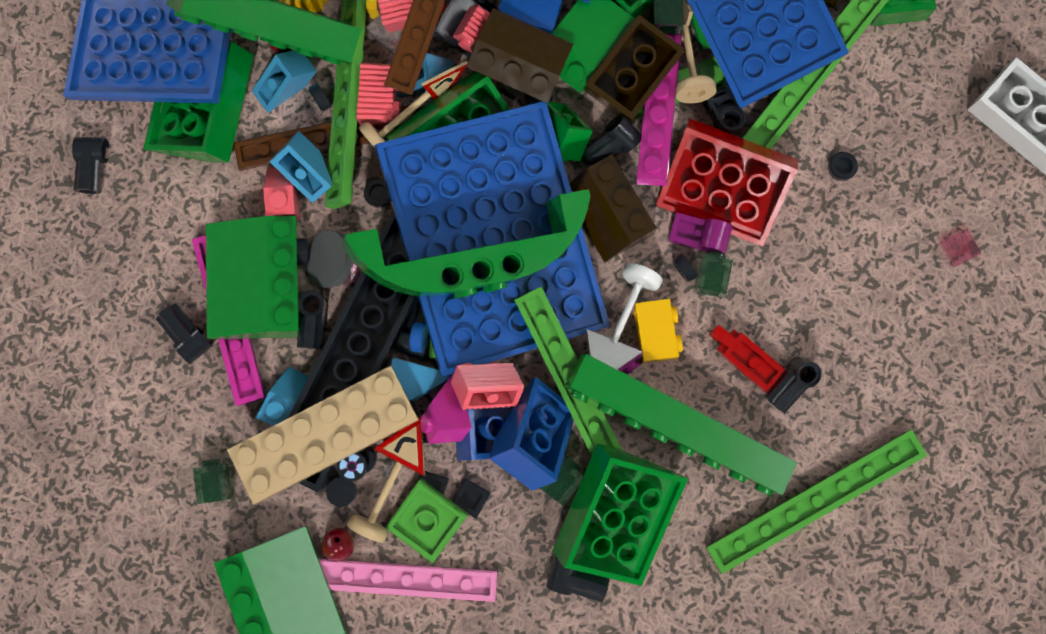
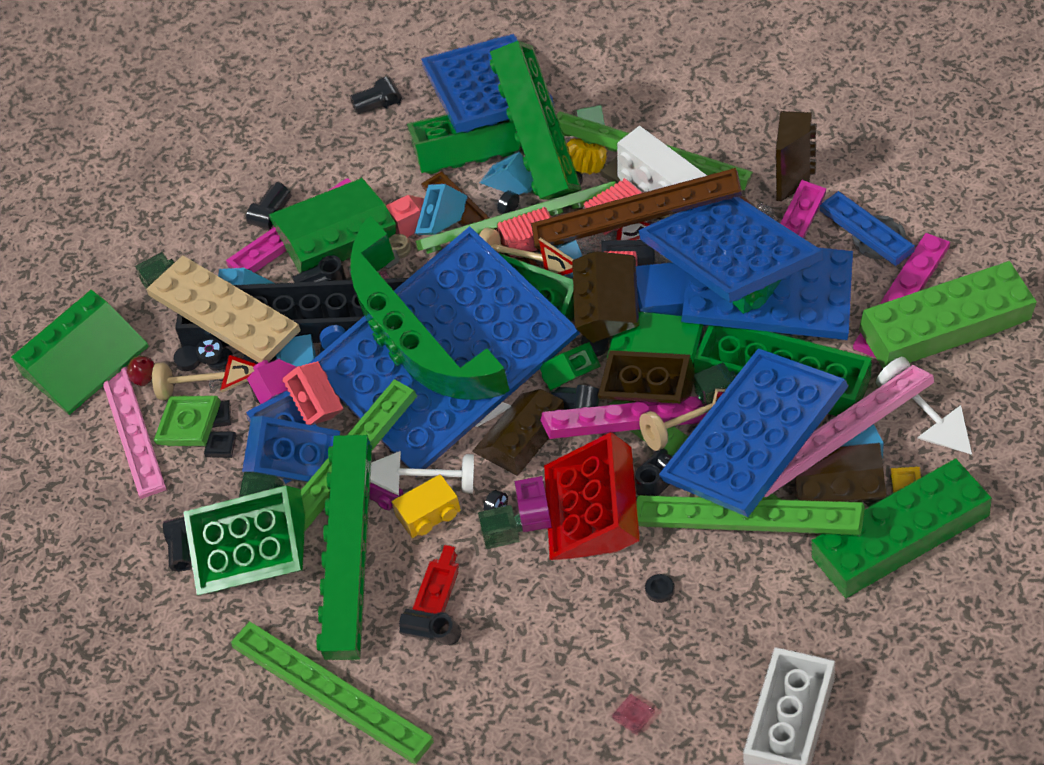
camera: 70 degrees right, 30 degrees down
(308, 218) = (401, 240): none -> dark tan plate

